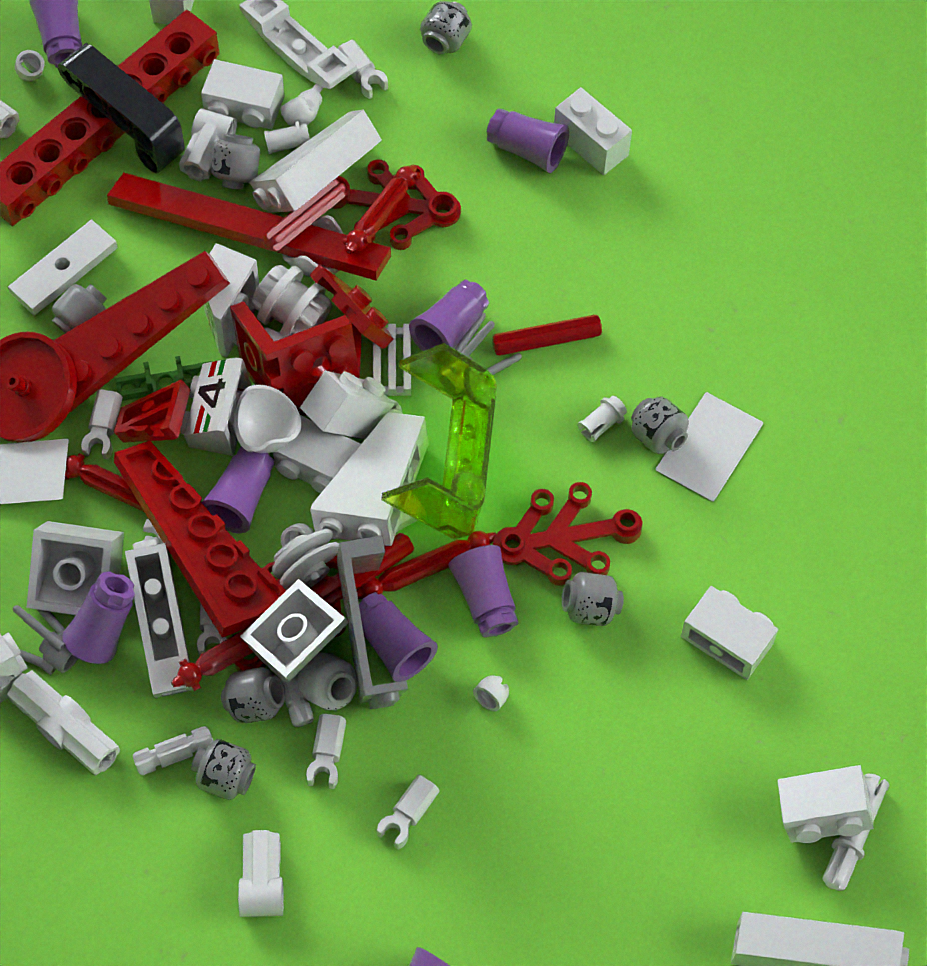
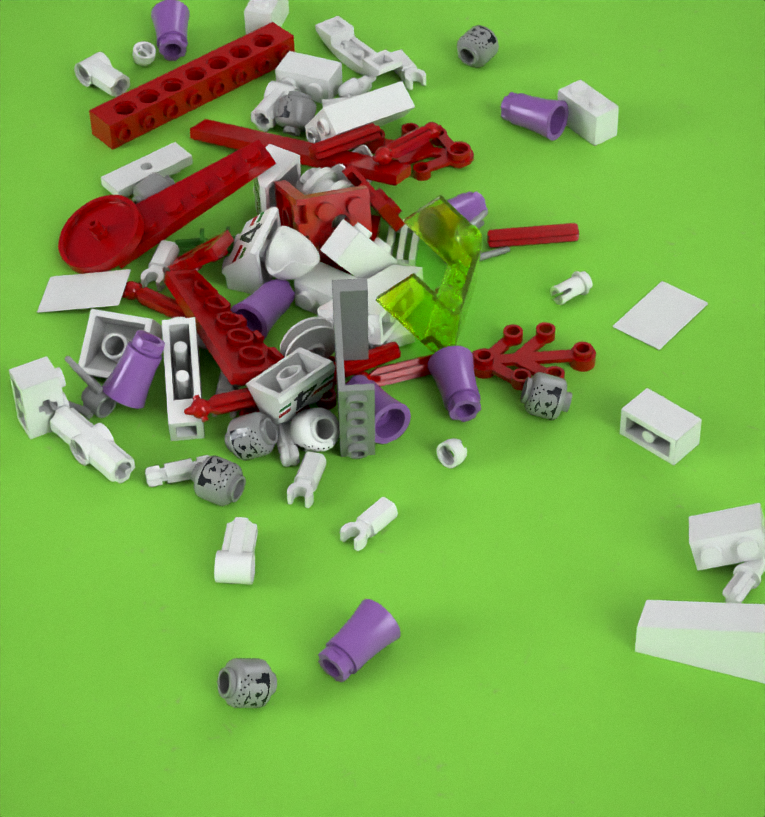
camera: 10 degrees right, 20 degrees down
(127, 104) = (217, 70): black beam -> none
(660, 425) = (618, 291): light grey head -> none

